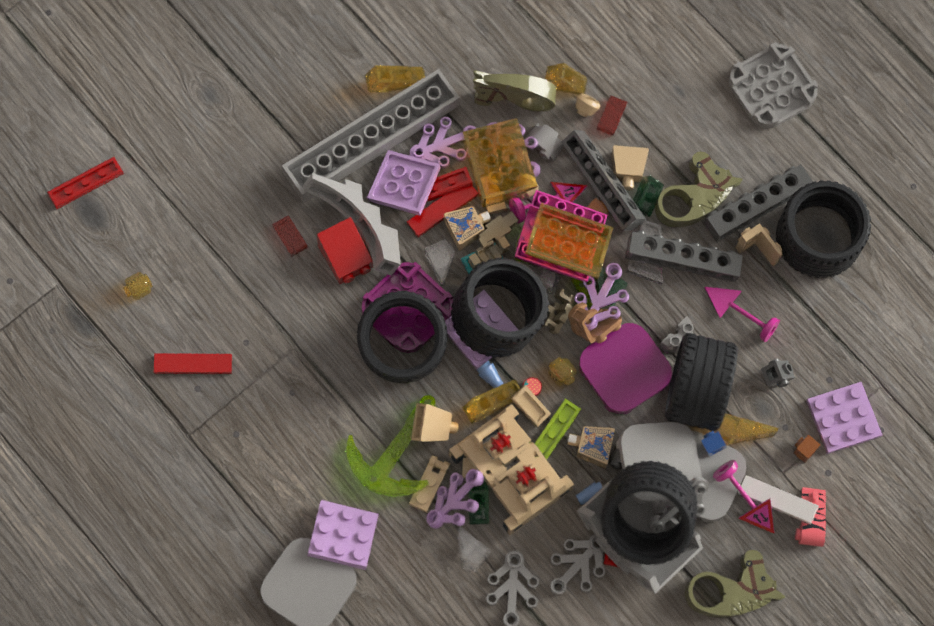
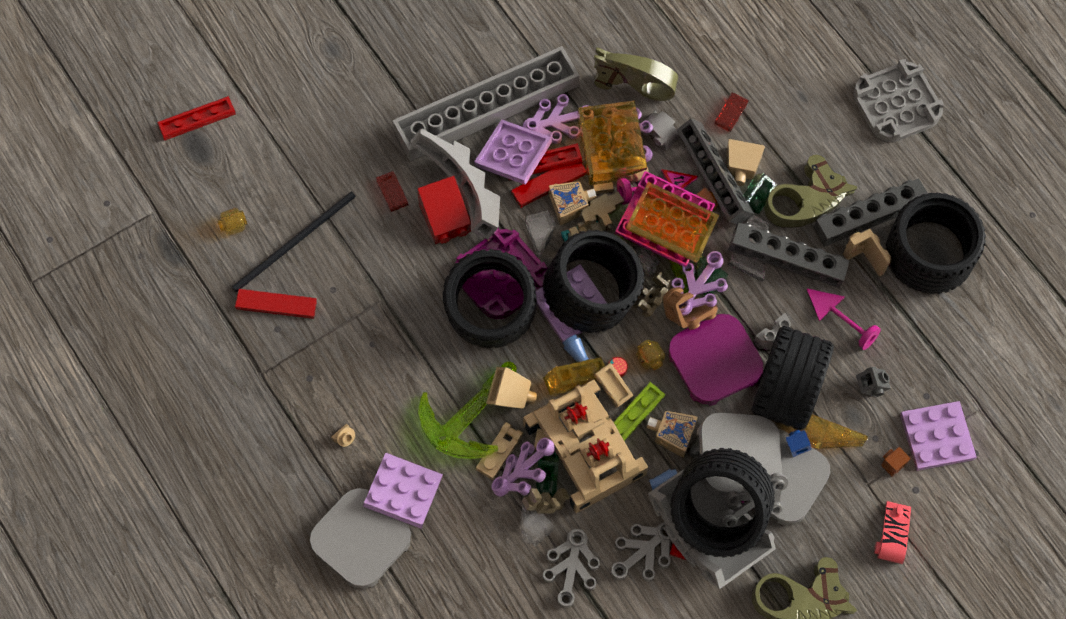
camera: 10 degrees right, 5 degrees down
(201, 298) = (294, 241): none -> black piece
(278, 487) = (344, 436): none -> tan plate
(392, 78) = (514, 51): clear yellow slope -> none
(479, 530) = (544, 502): none -> dark tan piece
(566, 79) = (690, 71): clear yellow slope -> none
(587, 105) = (707, 99): tan cone -> none
(759, 515) = (839, 523): dark pink piece -> none
(780, 500) = (860, 509): white tile -> none

